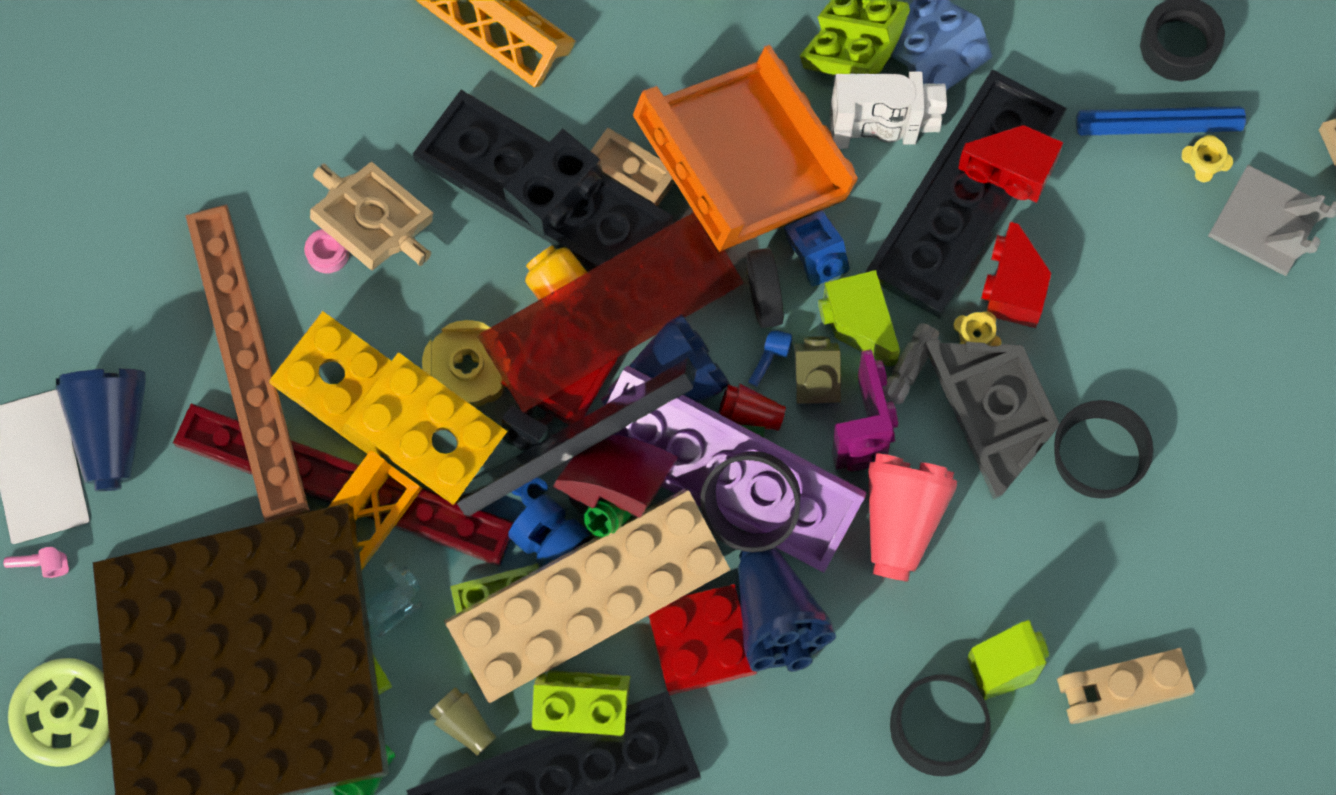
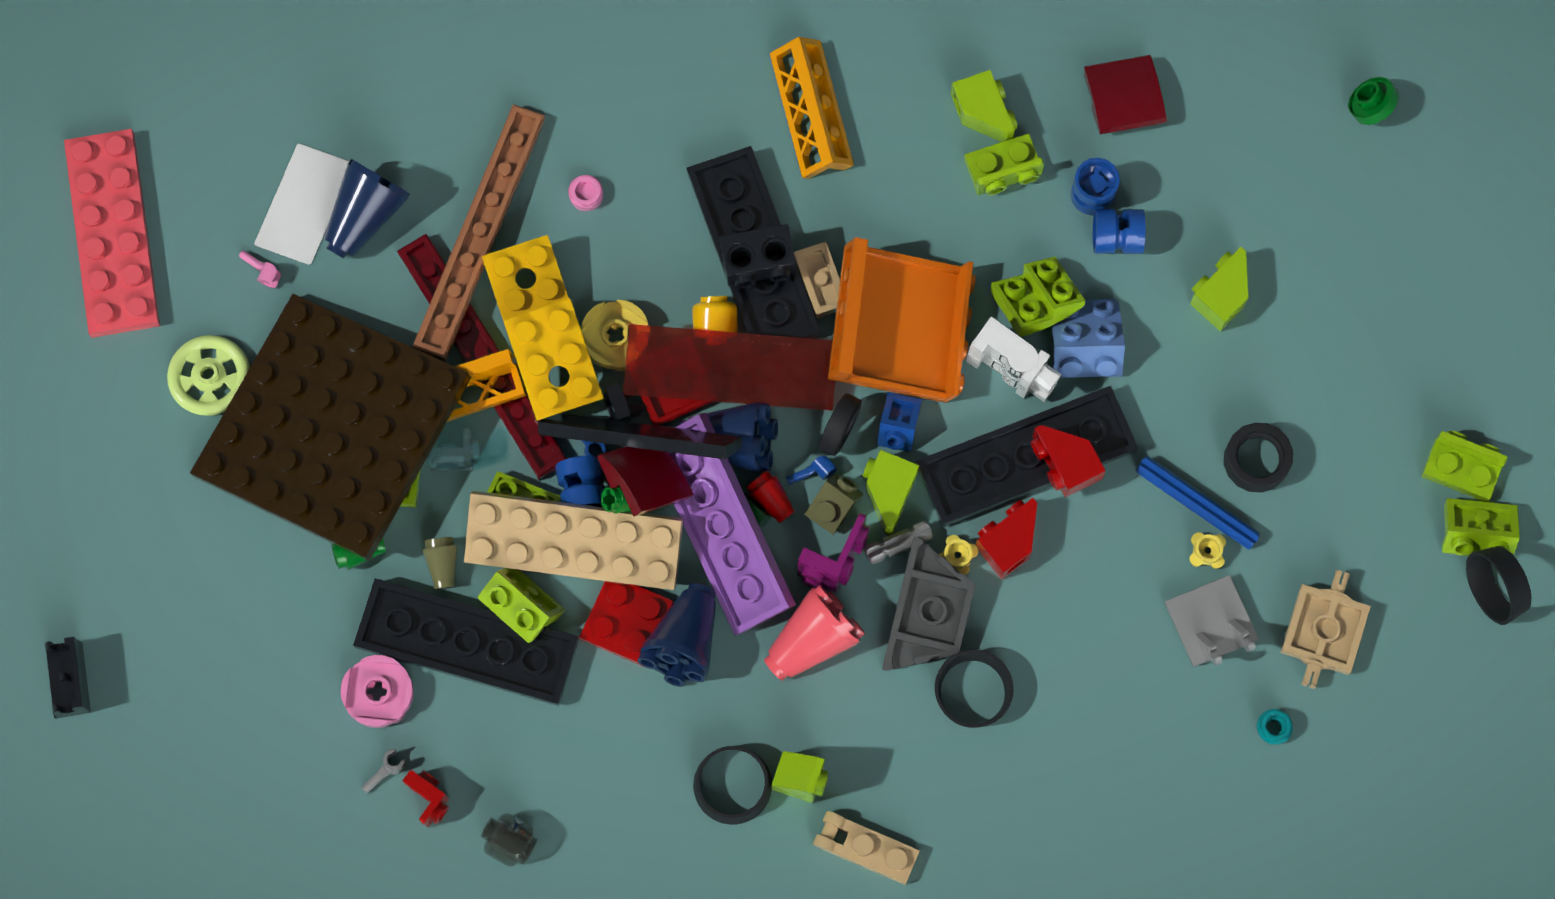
camera: 35 degrees right, 5 degrees up
(371, 215) = (629, 191): tan plate -> none
(729, 533) = (690, 557): black tyre -> none

